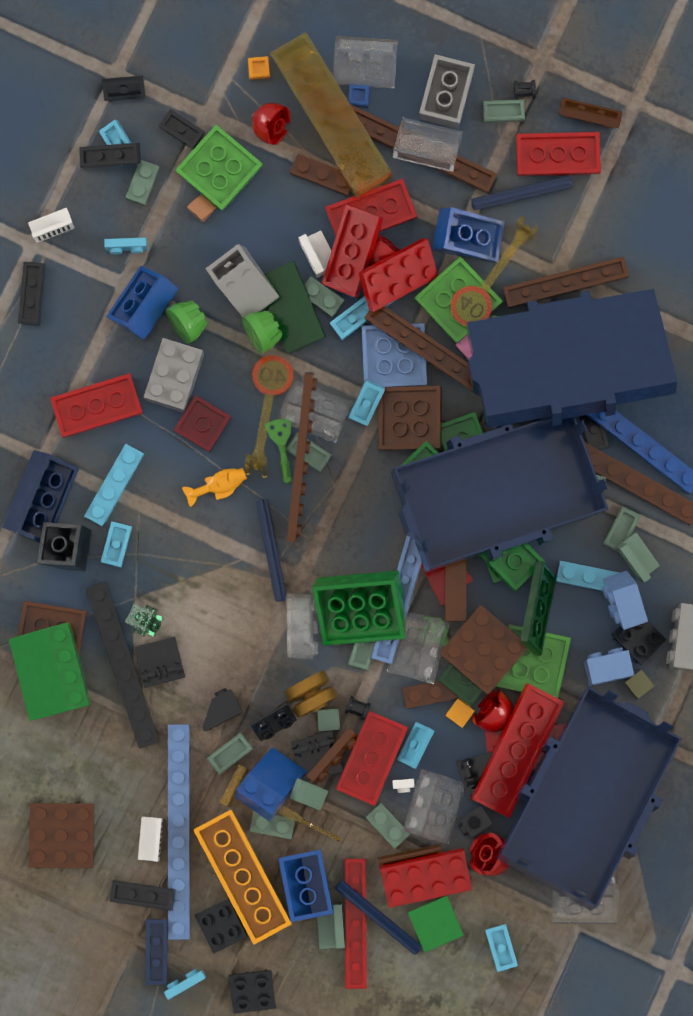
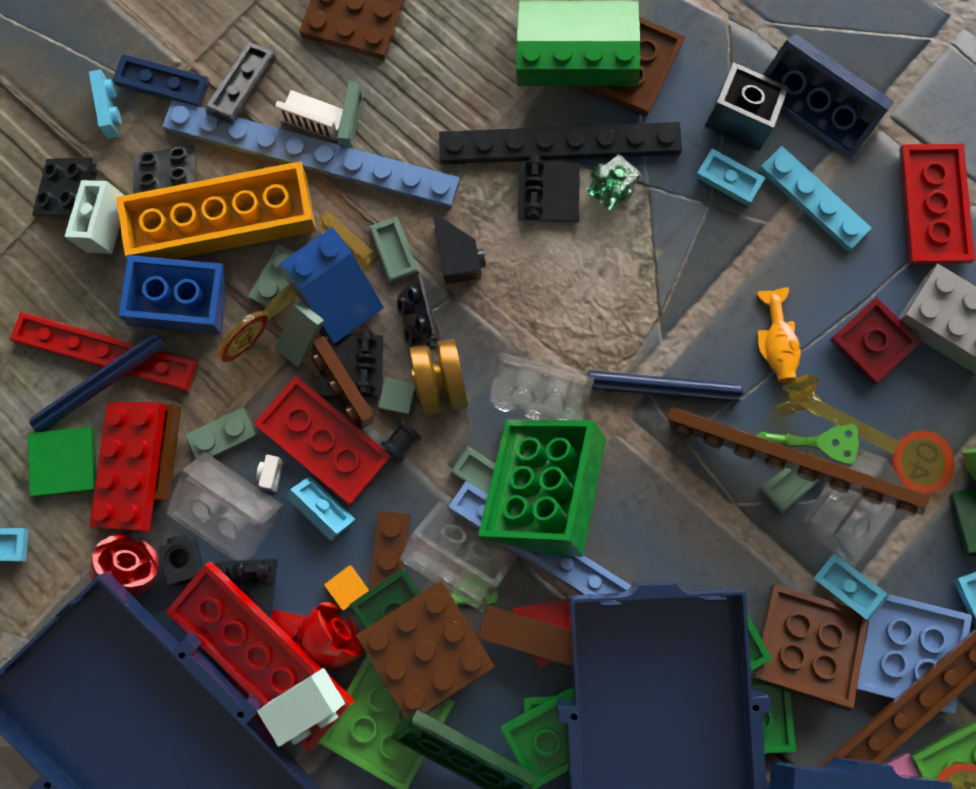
camera: 105 degrees right, 5 degrees down
(145, 811) = (350, 115): none -> sand green tile
(268, 957) = (95, 217): none -> light aqua brick
(331, 929) = (102, 317): sand green panel -> none
(540, 711) = (302, 707): none -> light aqua brick

